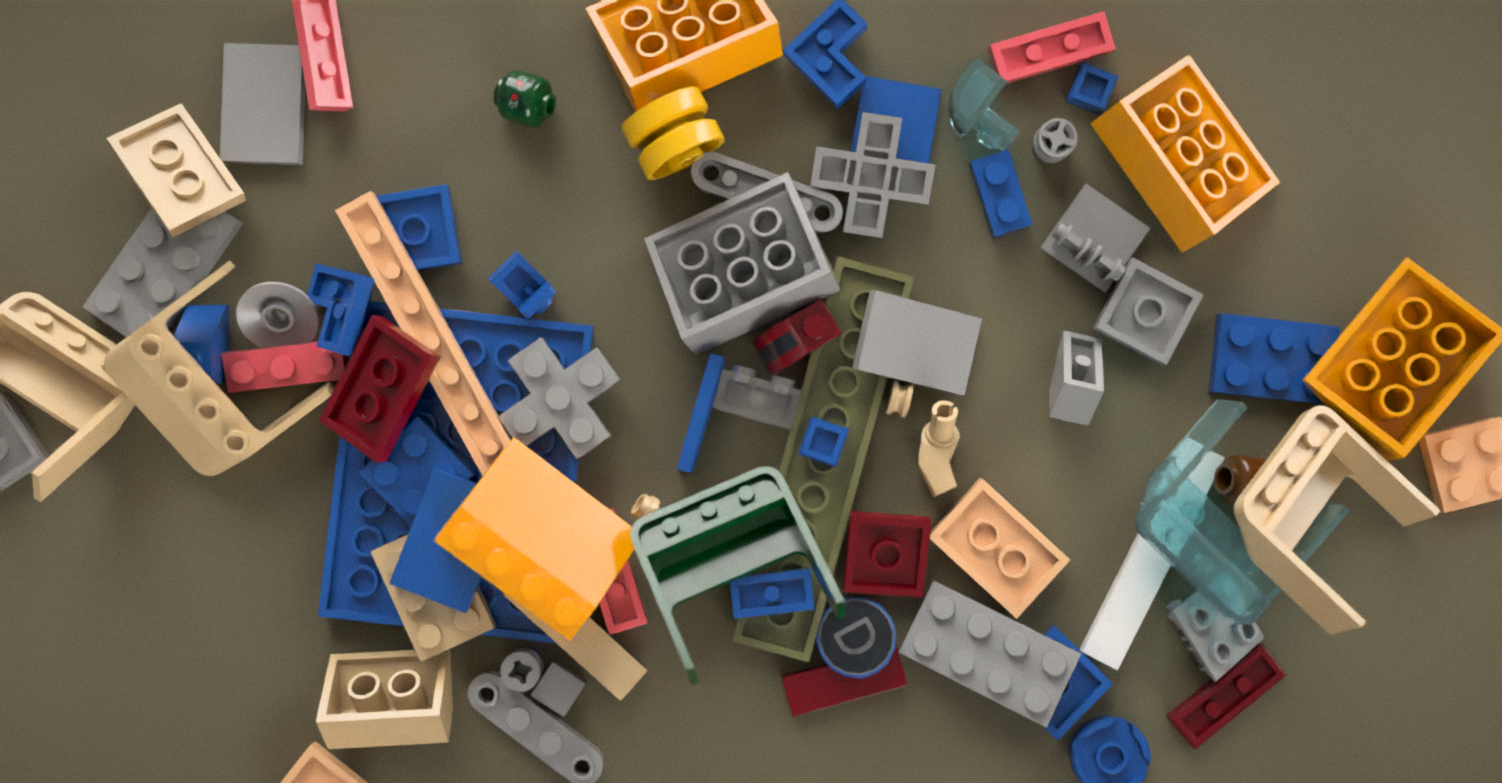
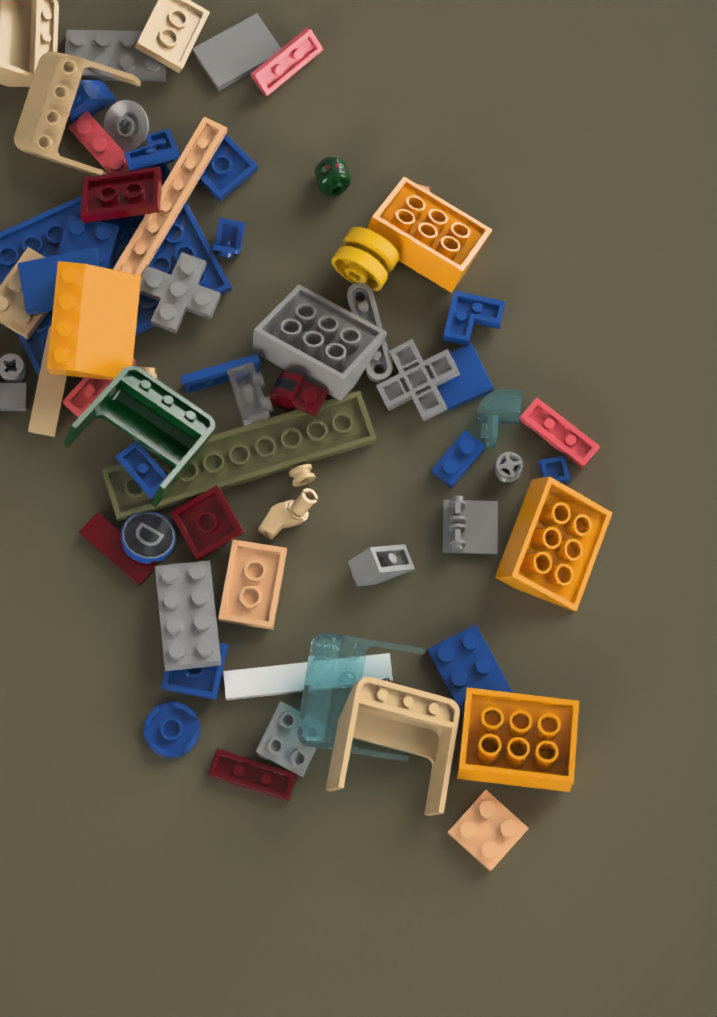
camera: 55 degrees right, 15 degrees down
(823, 441) = (248, 446): blue tile -> none
(917, 342) = (340, 463): light grey tile -> none
(1148, 311) = (447, 581): light grey plate -> none

